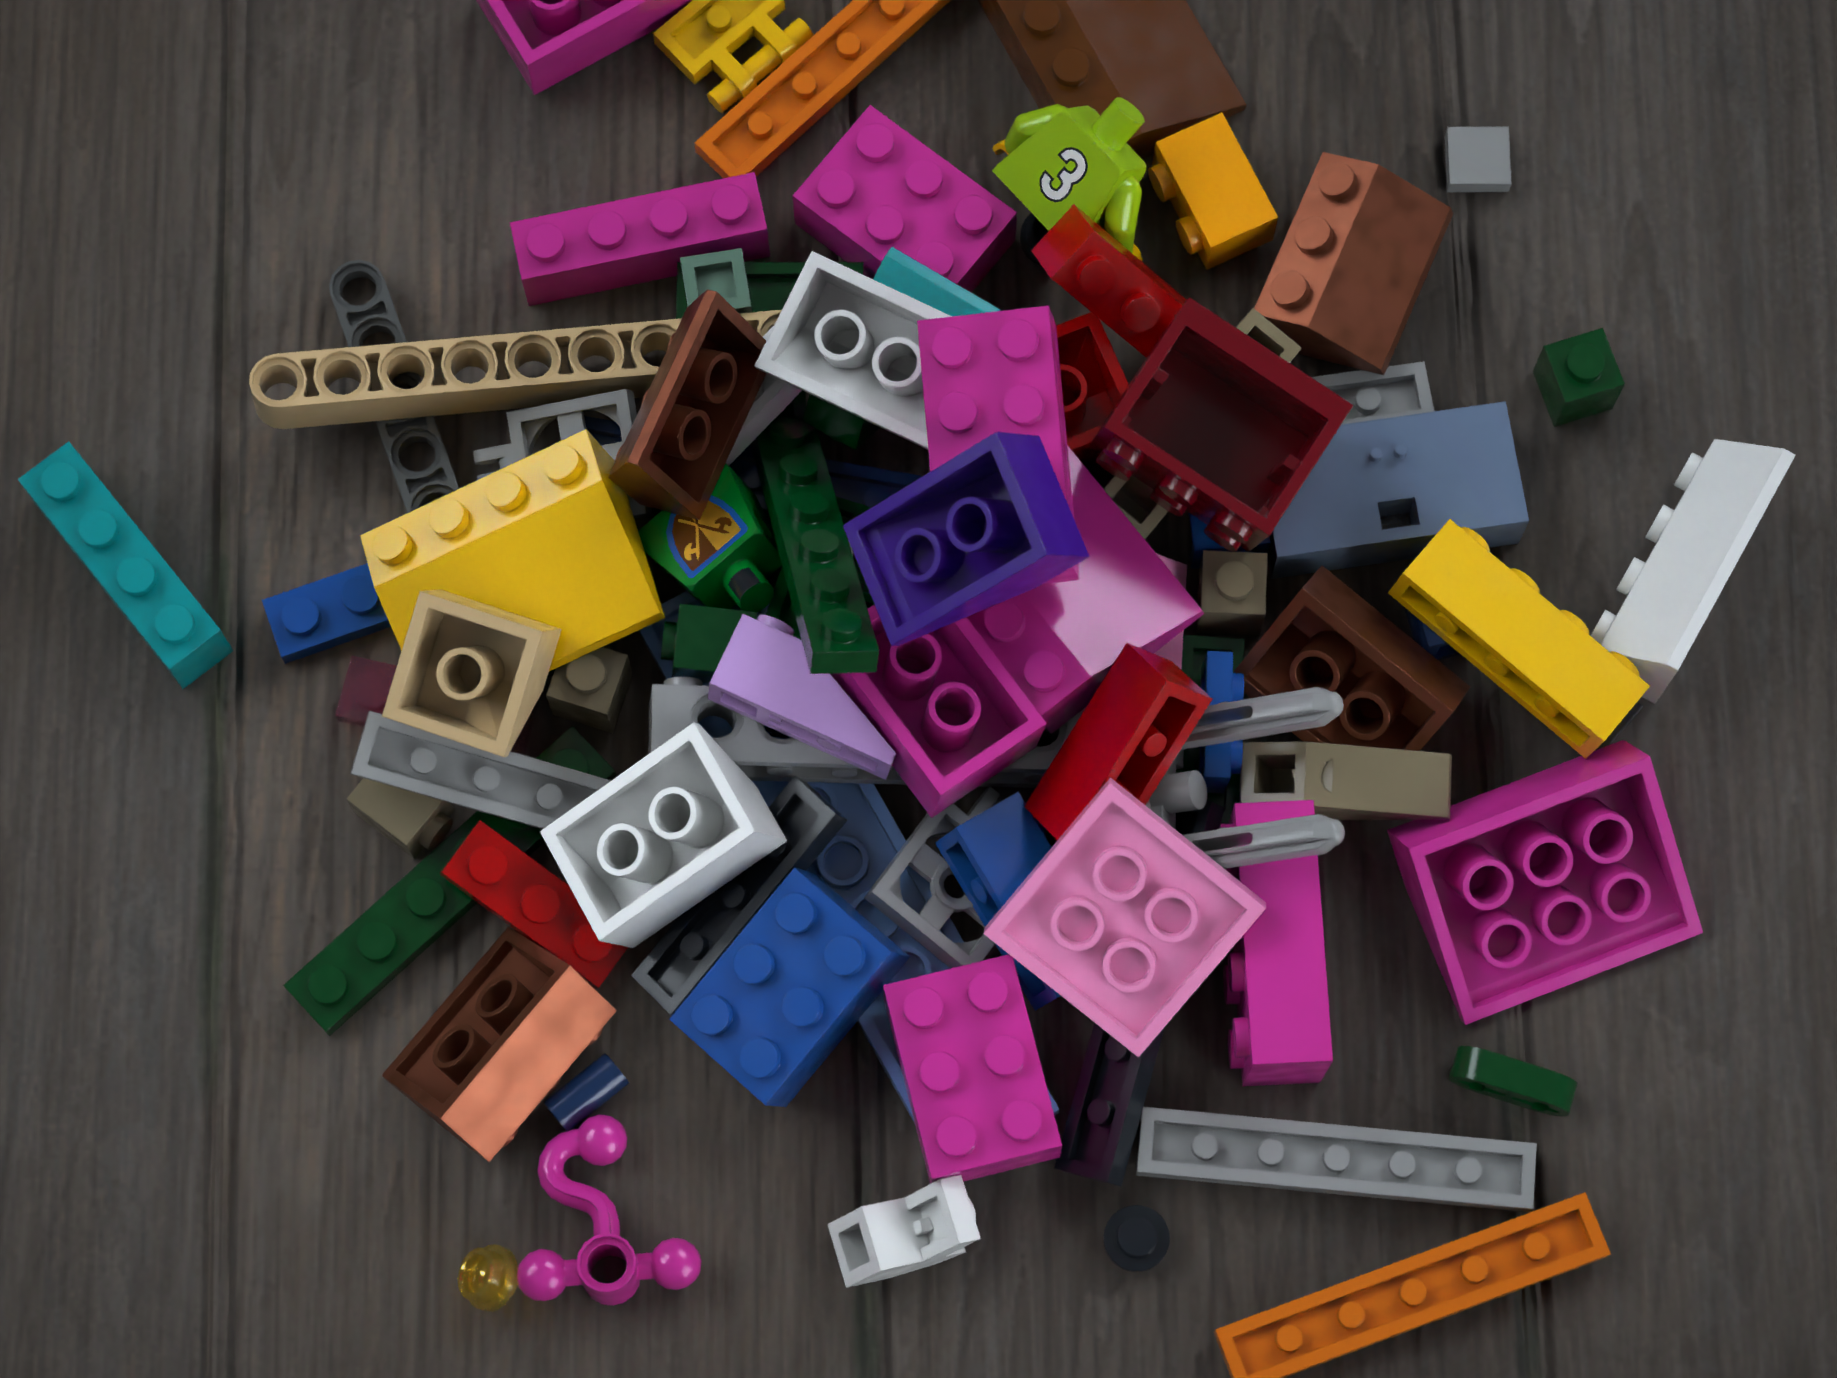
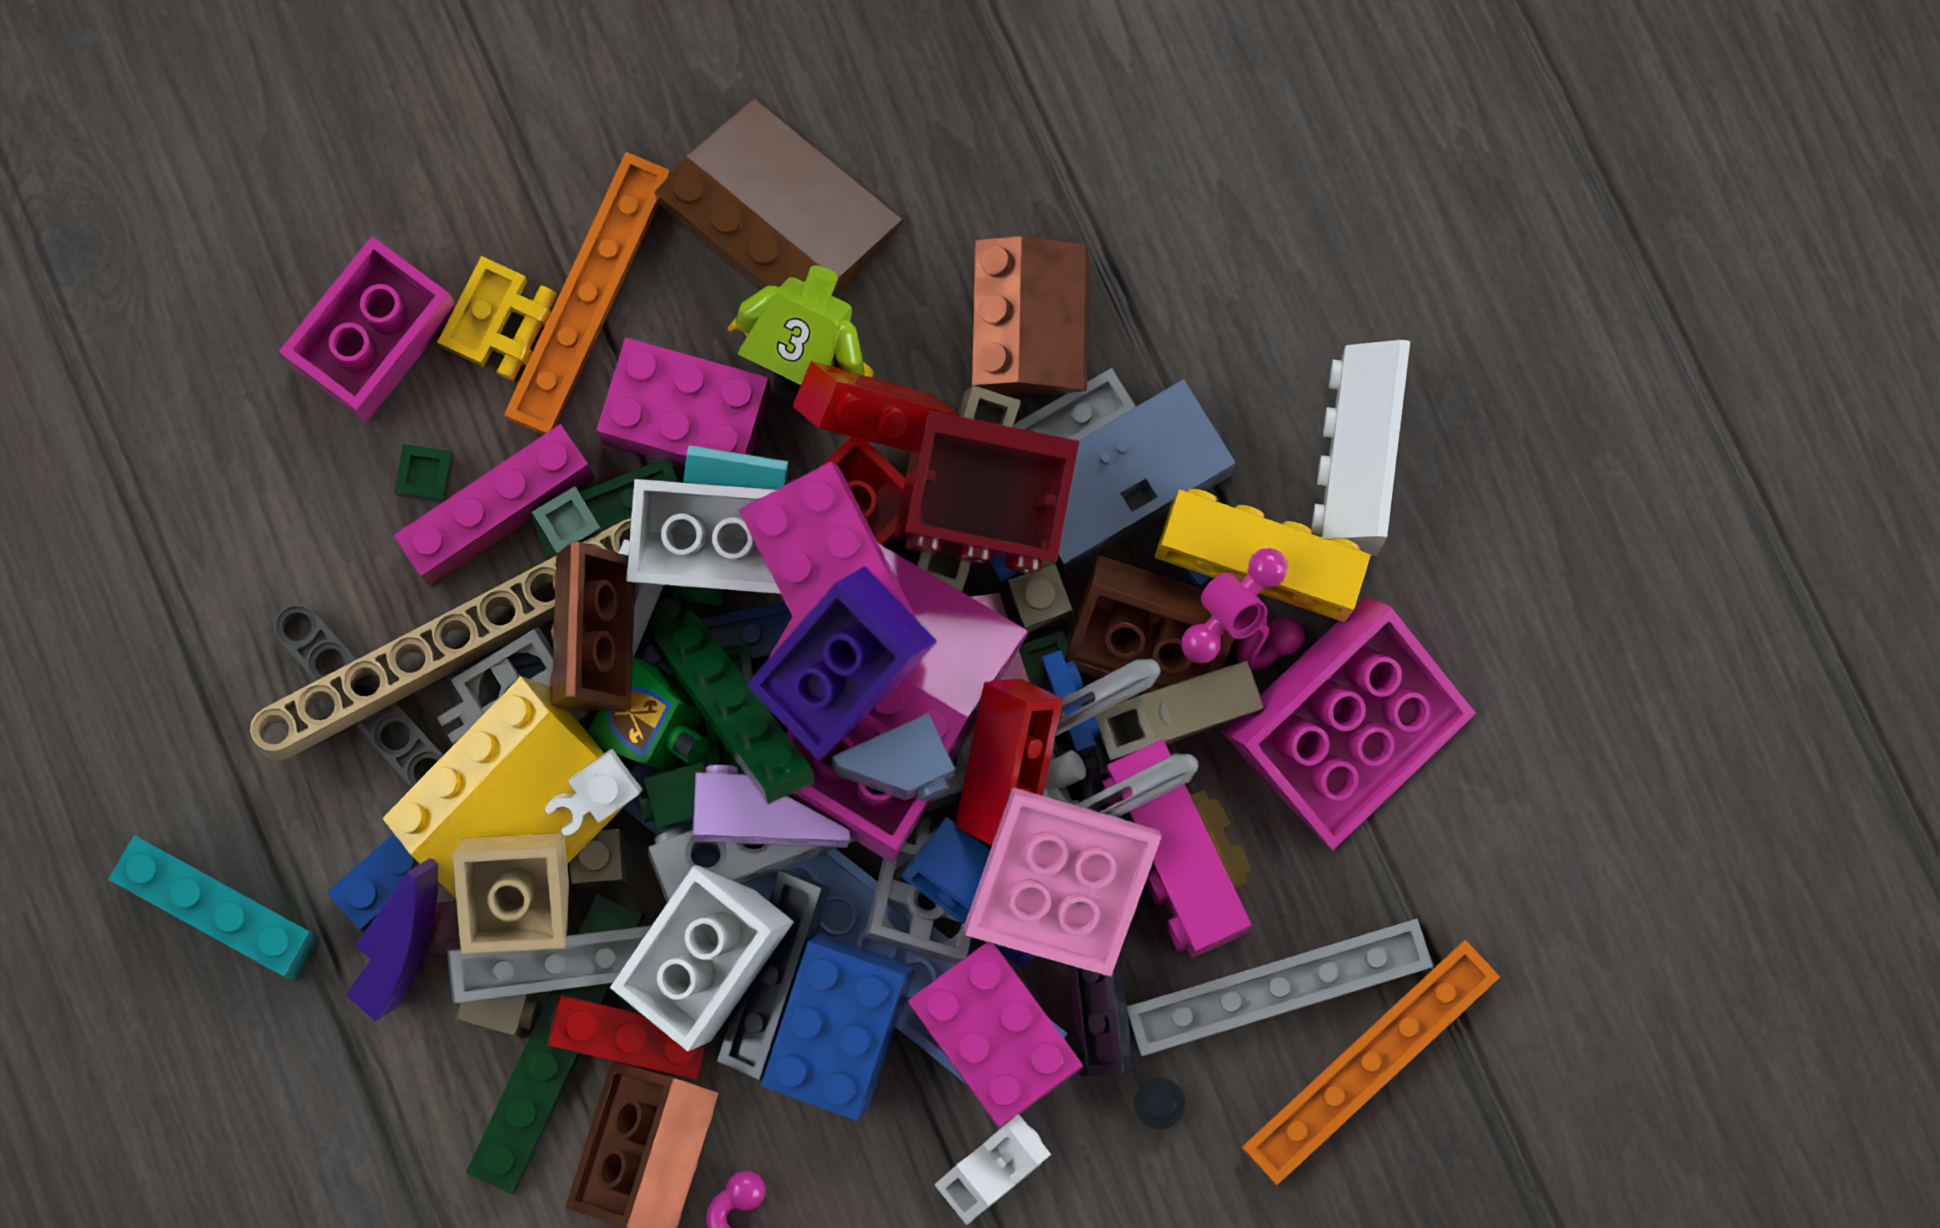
camera: 20 degrees left, 5 degrees up
(316, 682) = (397, 942): none -> dark purple slope
(575, 173) = (424, 473): none -> dark green plate
(586, 1092) = (720, 1160): dark blue piece -> none
(623, 593) = (599, 789): none -> white plate
(987, 691) = (900, 762): none -> sand blue slope
(1212, 191) = (905, 300): light orange brick -> none
(1338, 931) = (1215, 820): none -> clear yellow plate
(1468, 692) = (1244, 615): none -> dark pink piece
(1477, 159) = (1089, 194): light grey tile -> none
(1513, 1081) = (1382, 879): dark green beam -> none
(1578, 377) = (1228, 335): dark green brick -> none

